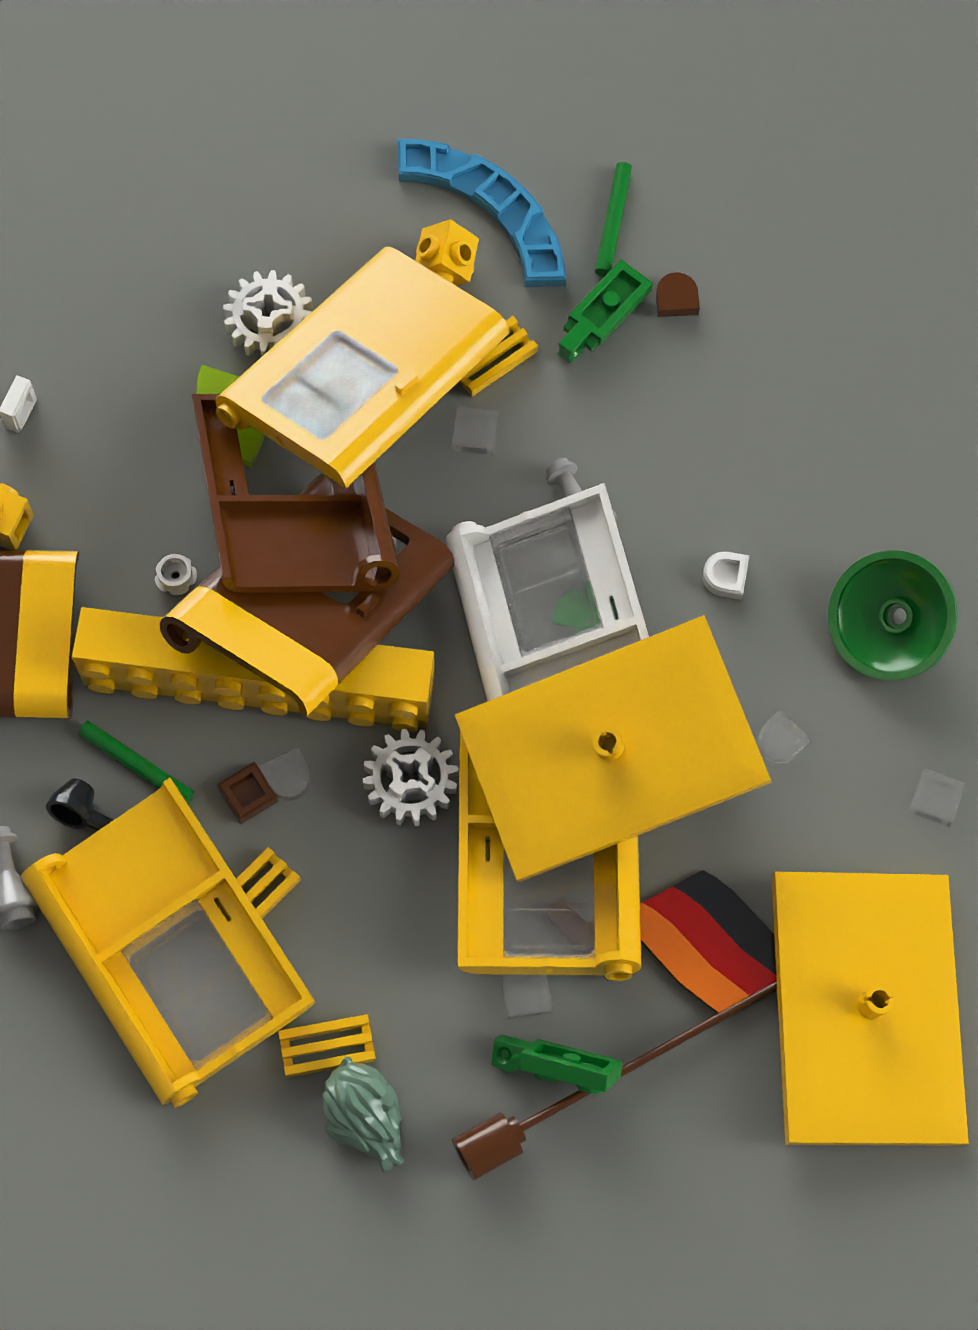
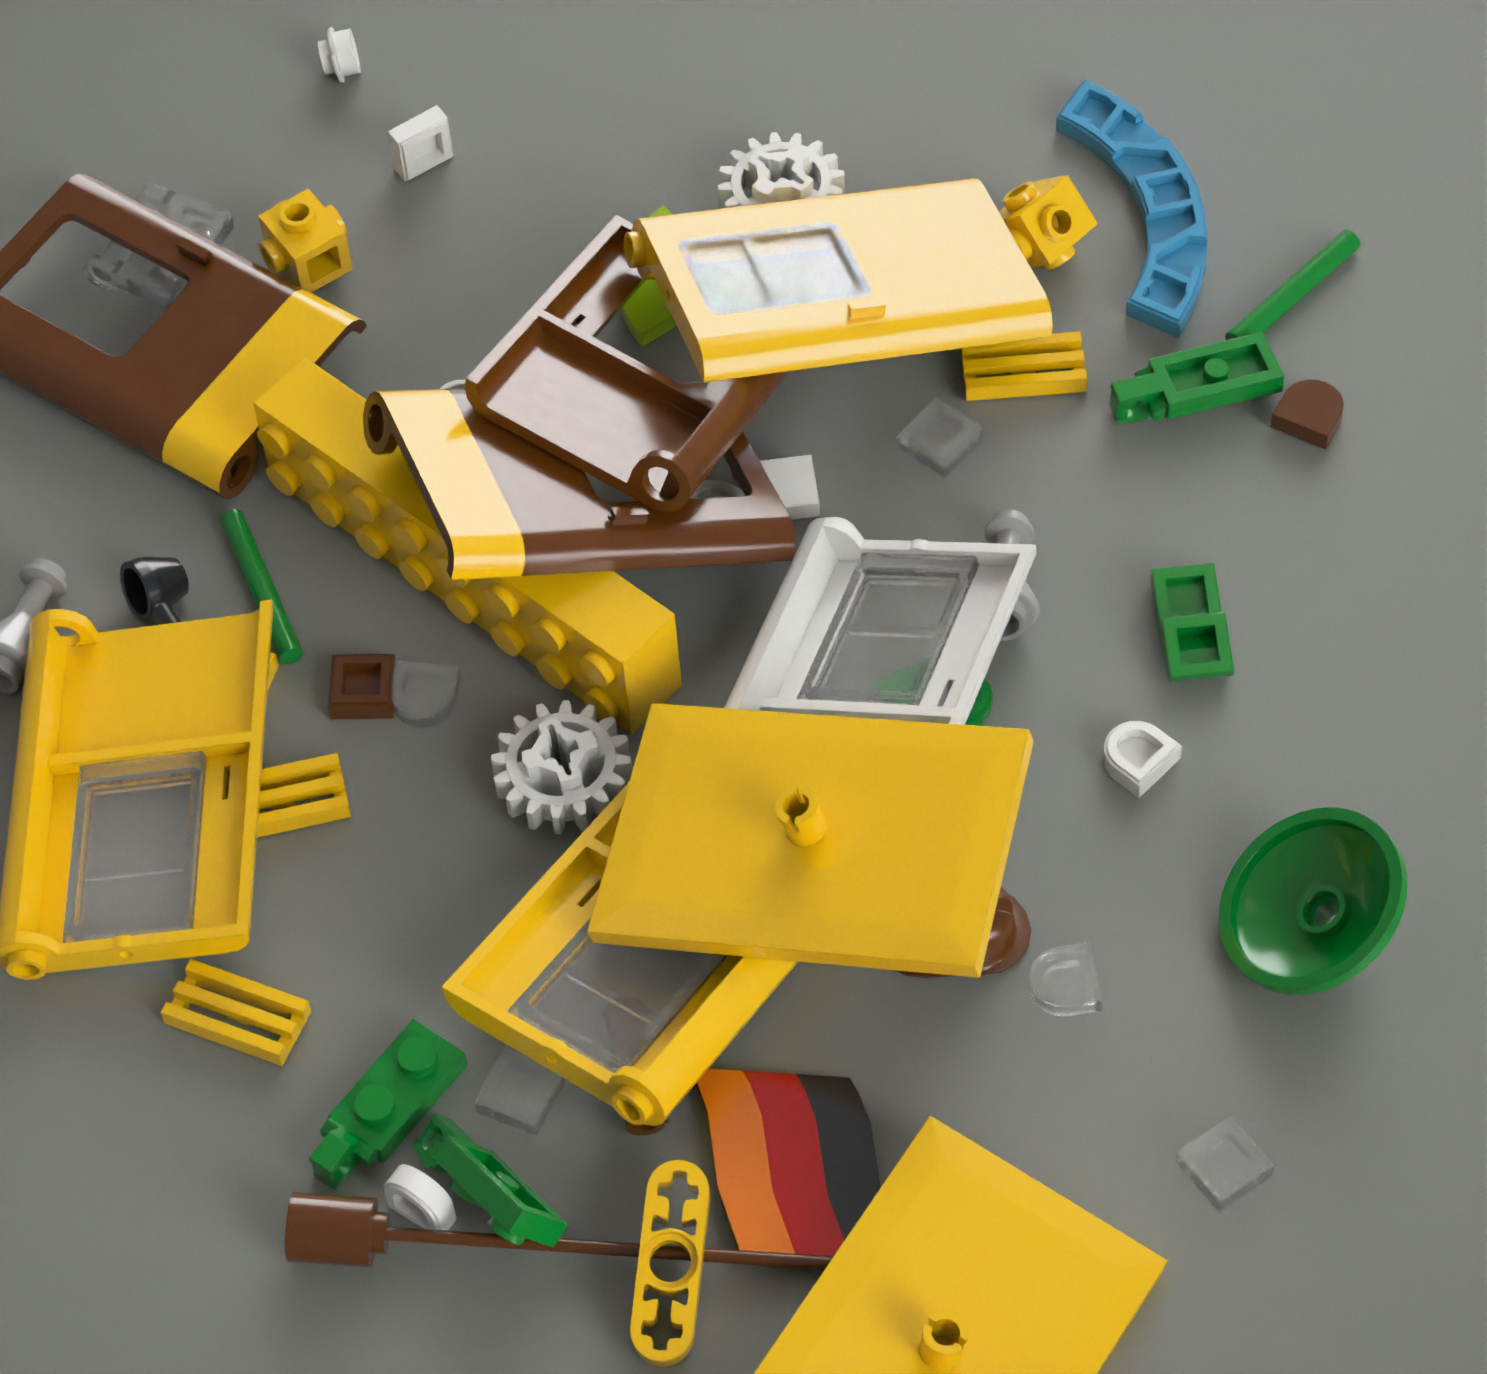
camera: 40 degrees right, 15 degrees down
(363, 1112) = (216, 1102): sand green hair -> none
(414, 510) = (795, 484): none -> white tile
(456, 1045) = (386, 1102): none -> green hinge
(521, 1095) = (419, 1199): none -> white tile
(695, 1082) = (658, 1209): none -> yellow beam
(700, 474) = (1191, 622): none -> green slope

